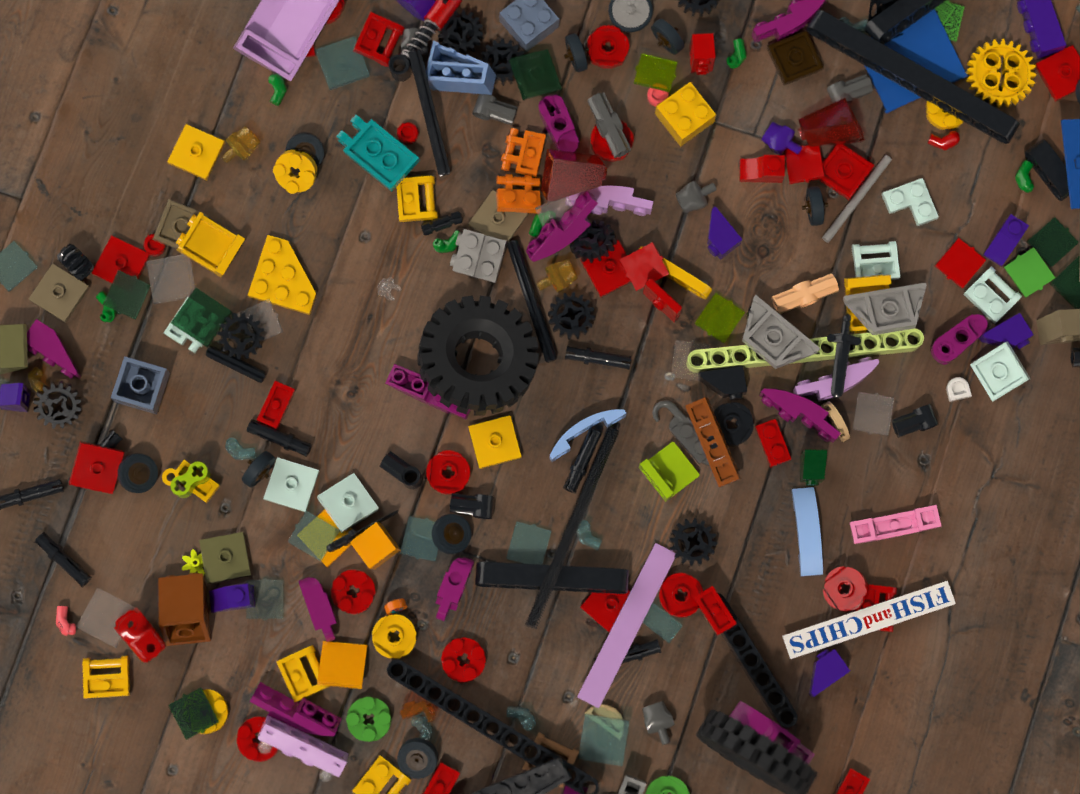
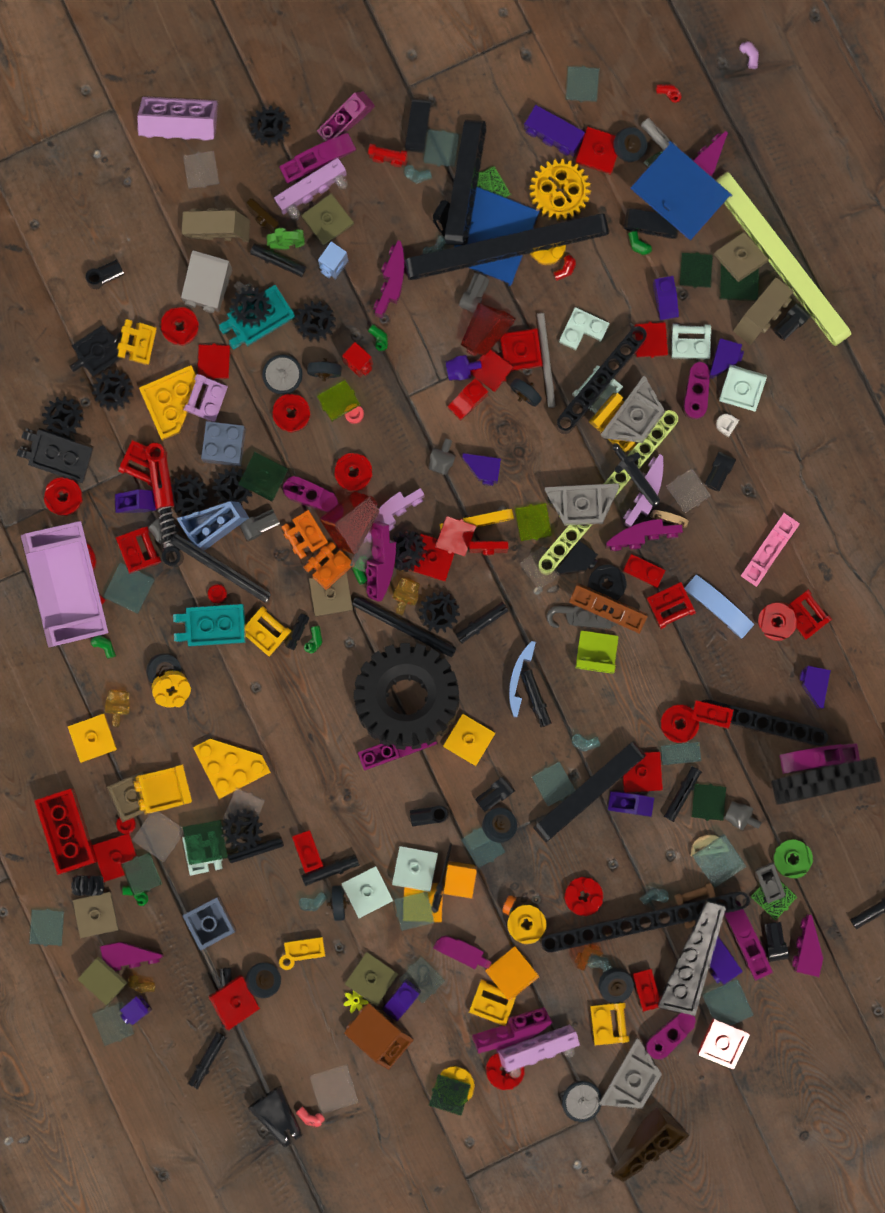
camera: 40 degrees left, 5 degrees up
(39, 593) = (276, 1116): none -> black piece
(49, 400) = (161, 983): black gear -> none
(63, 559) = (270, 1080): black pin -> none
(101, 202) = (65, 831): none -> red brick
(108, 684) = (376, 1130): yellow plate -> none
(141, 636) = (369, 1080): red piece -> none
(190, 479) = (302, 952): lime axle -> none
(346, 602) = (477, 931): red plate -> none
(356, 718) = (568, 999): bright green plate -> none
(386, 286) = (302, 707): clear plate -> none
(453, 586) = (533, 856): magenta piece -> none
(456, 482) = (461, 777): red plate -> none
(478, 255) = (342, 630): light grey plate -> none
(576, 52) = (275, 437): black wheel -> none
(576, 516) = (579, 766): black axle -> none
(576, 621) = (631, 804): none -> dark purple slope
(609, 125) = (344, 465): dark grey piece -> none
(626, 626) = (665, 775): lavender sticker -> none
(642, 683) = (708, 802): none -> clear green piece
(685, 114) = (384, 410): yellow brick -> none
(702, 547) = (663, 680): black gear -> none
(769, 484) = (668, 599): none -> red plate
(795, 58) = (418, 305): dark brown plate -> none
(805, 293) = (573, 455): light nougat piece -> none
(813, 467) = (685, 563): dark green slope -> none
(868, 619) = (810, 626): white sticker -> none
(895, 247) = (605, 371): none -> black beam
(1029, 272) = (700, 304): bright green piece -> none

